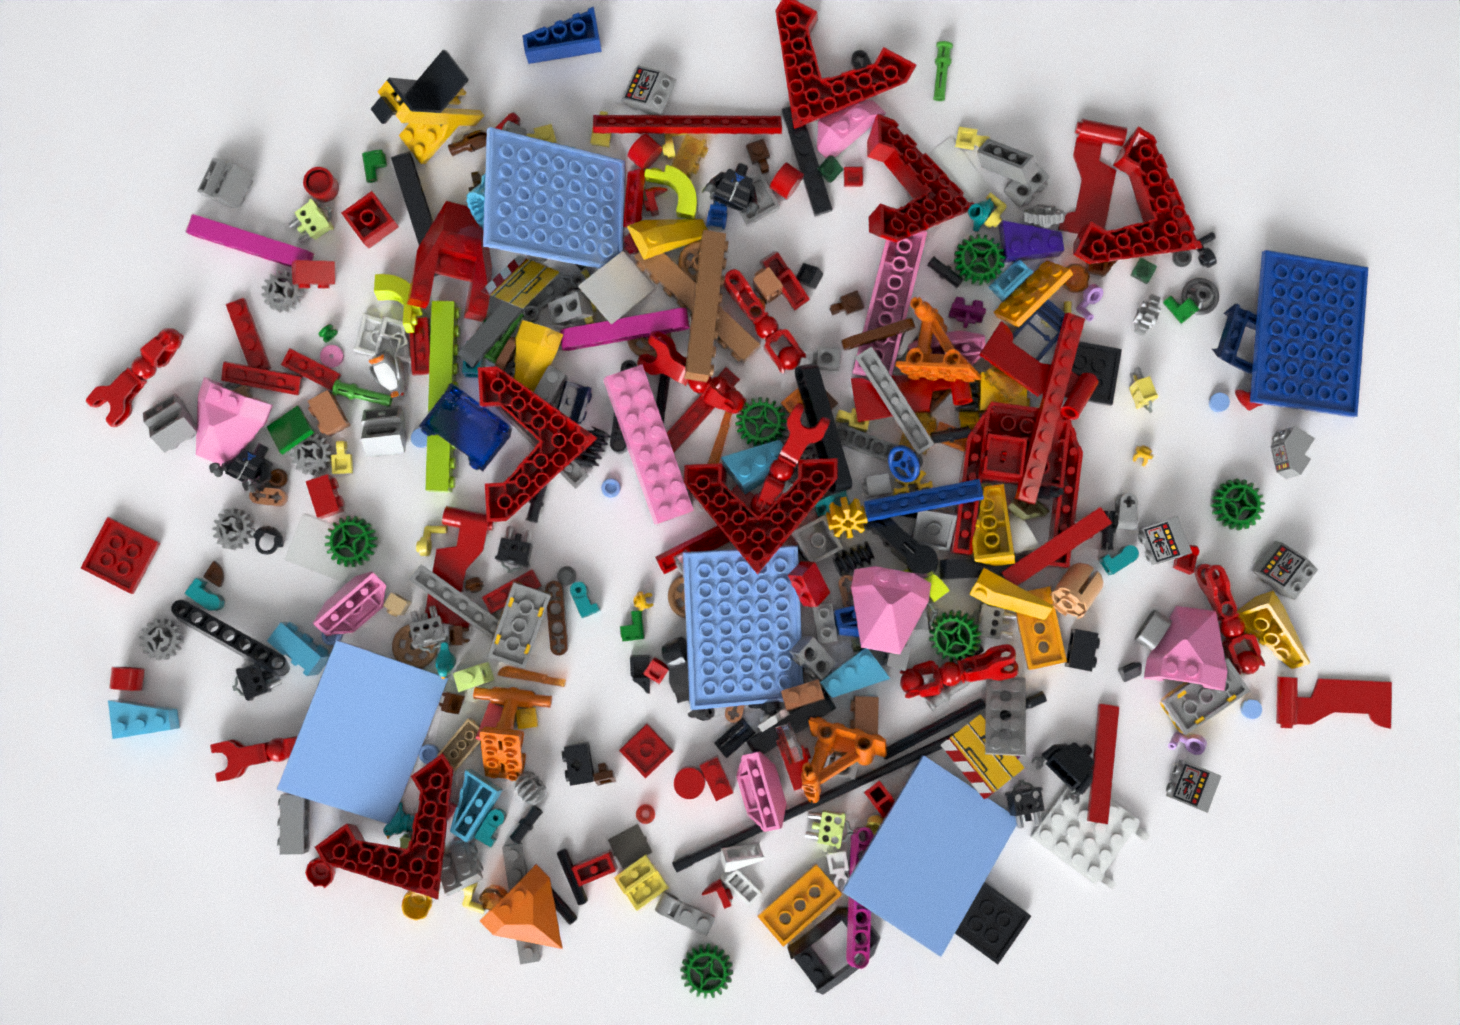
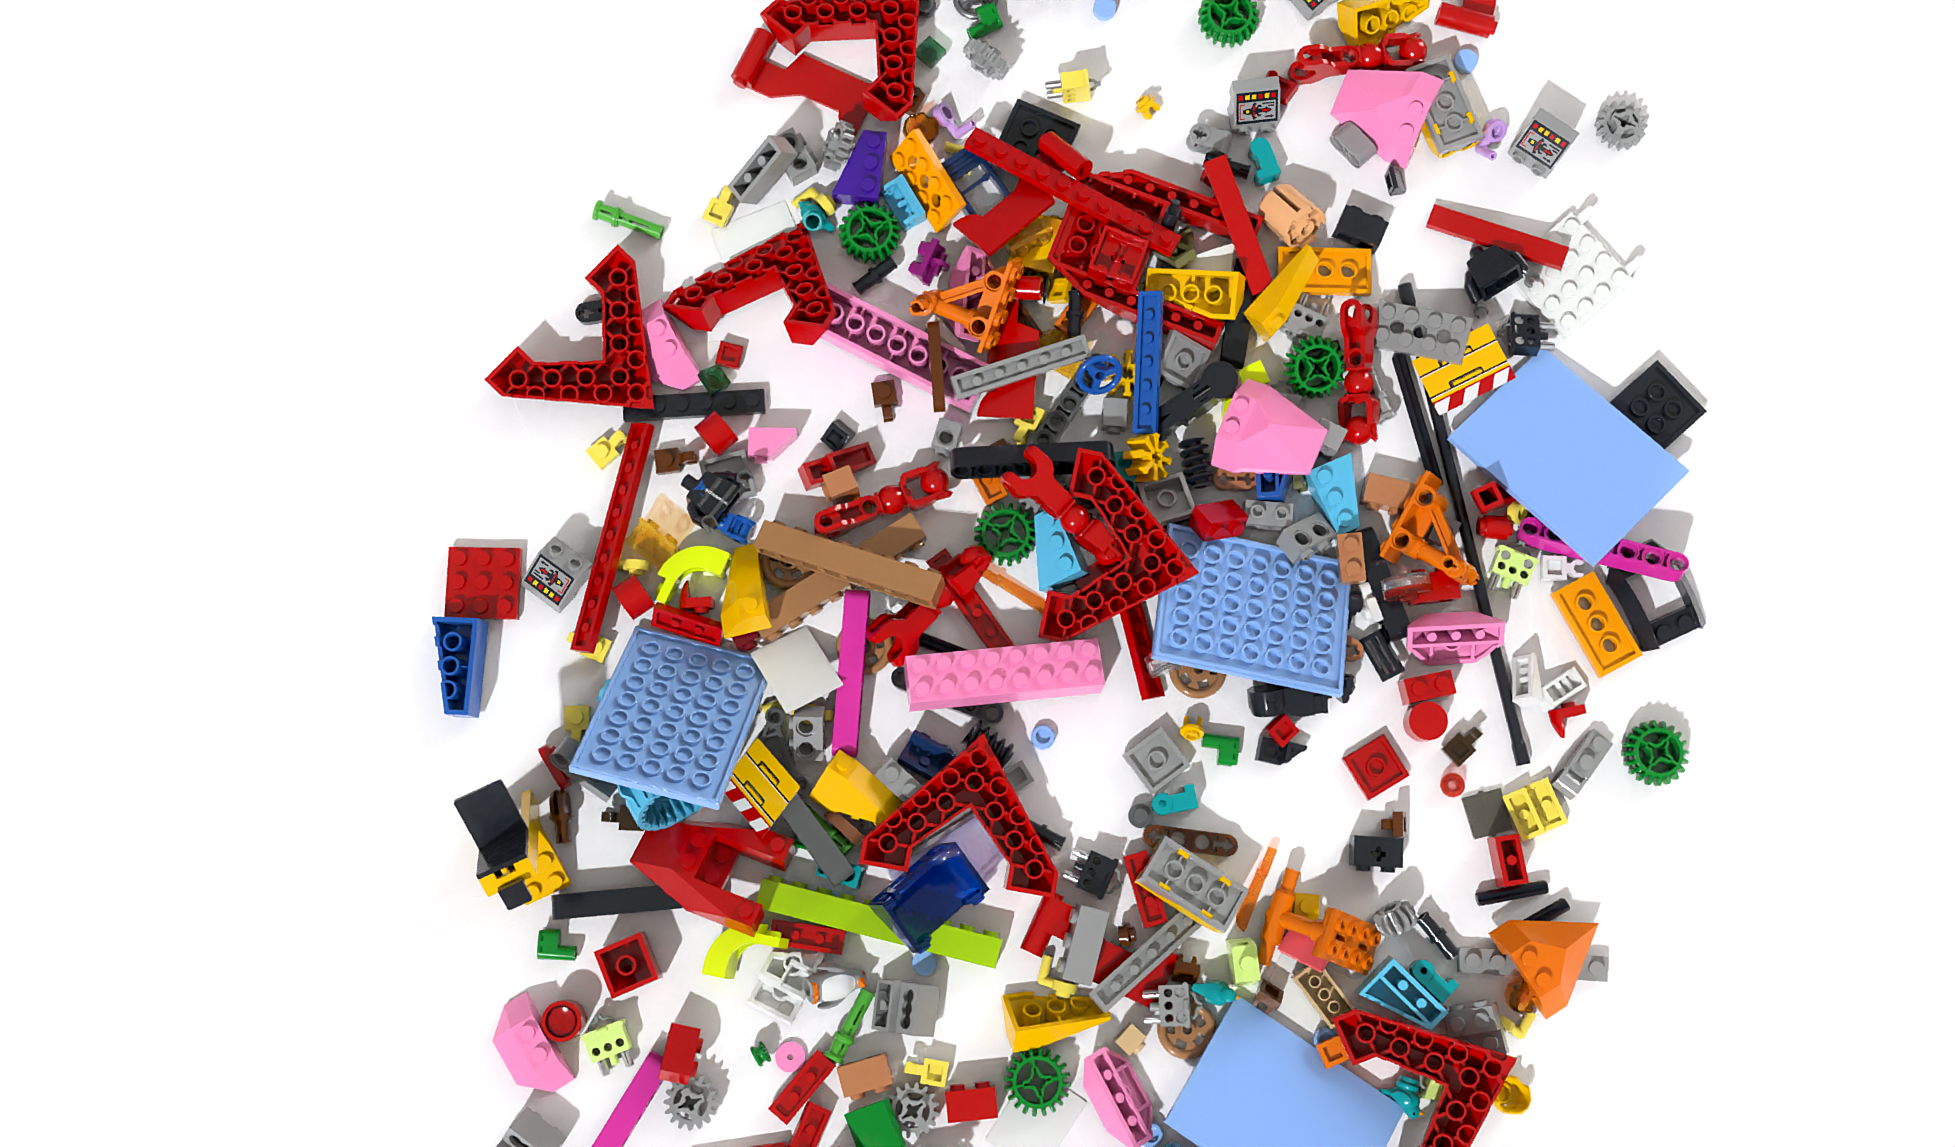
camera: 85 degrees left, 5 degrees down
(293, 162) = (526, 1049): none -> bright pink wedge
(398, 537) = (1043, 1020): none -> yellow wedge
(419, 758) = (1331, 1051): none -> orange plate
(456, 551) = (1082, 944): none -> light grey brick
(611, 578) = (1156, 760): none -> light grey plate
(630, 39) = (483, 583): none -> red plate
(676, 813) = (1460, 748): none -> dark brown plate
(754, 102) = (604, 451): none -> light yellow plate
(789, 223) = (769, 443): none -> bright pink slope
(859, 807) = (1494, 527): none -> red brick
(1229, 840) = (1631, 129): none -> light grey gear

